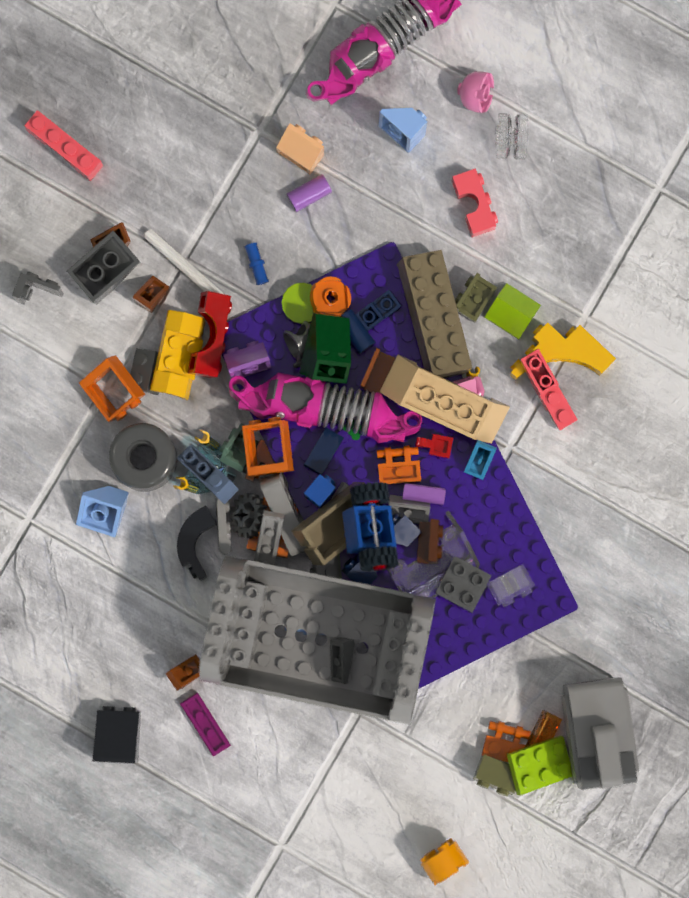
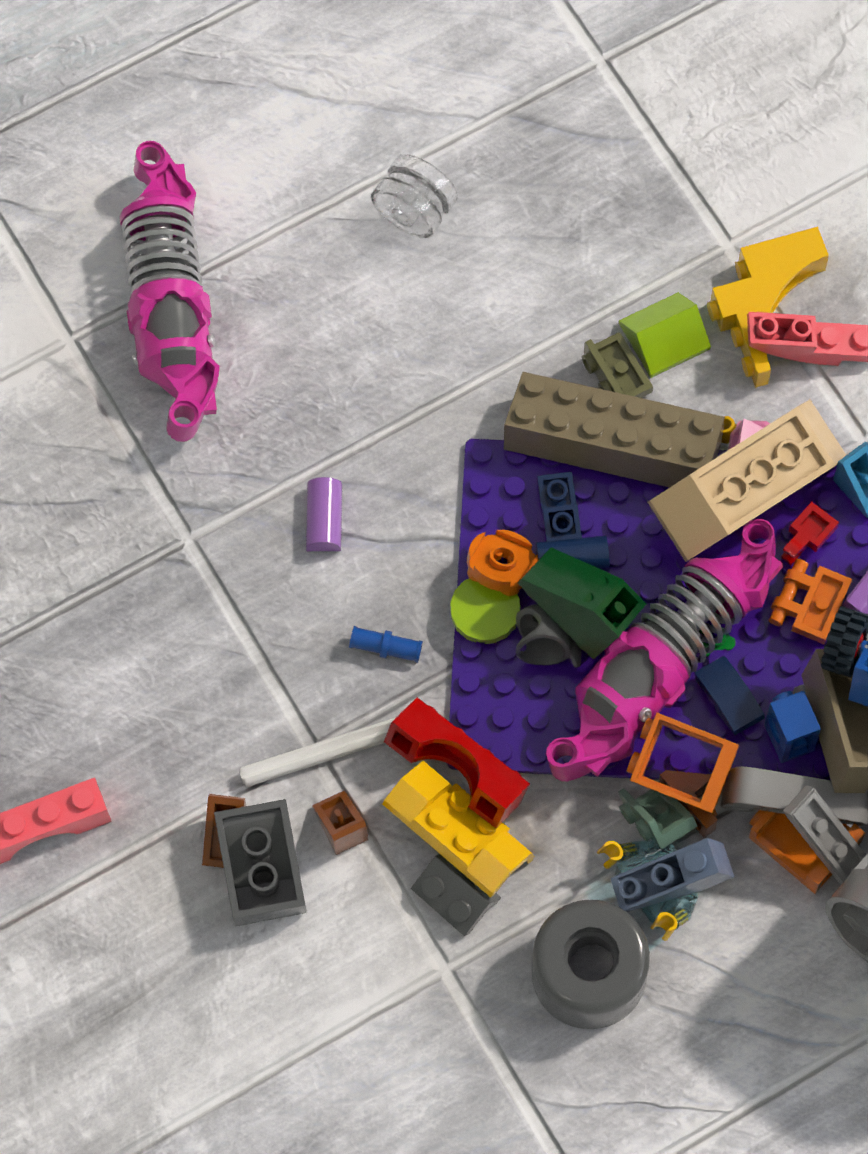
camera: 55 degrees left, 15 degrees down
(25, 281) = (217, 980): dark grey bracket -> none
(100, 399) = (461, 984): orange window -> none
(102, 510) = (638, 1074): light blue slope -> none
(189, 533) = (755, 970): black arch -> none
(223, 527) = (761, 907): light grey hinge -> none
(247, 360) = (529, 724): medium lavender slope -> none
(247, 515) = (751, 851): dark grey gear -> none
(300, 148) = (254, 486): light nougat slope -> none
(377, 371) = (649, 556): dark orange panel -> none
(403, 126) = (312, 325): light blue slope -> none
(470, 185) = (451, 290): coral arch -> none
(475, 91) = (317, 213): bright pink cylinder -> none

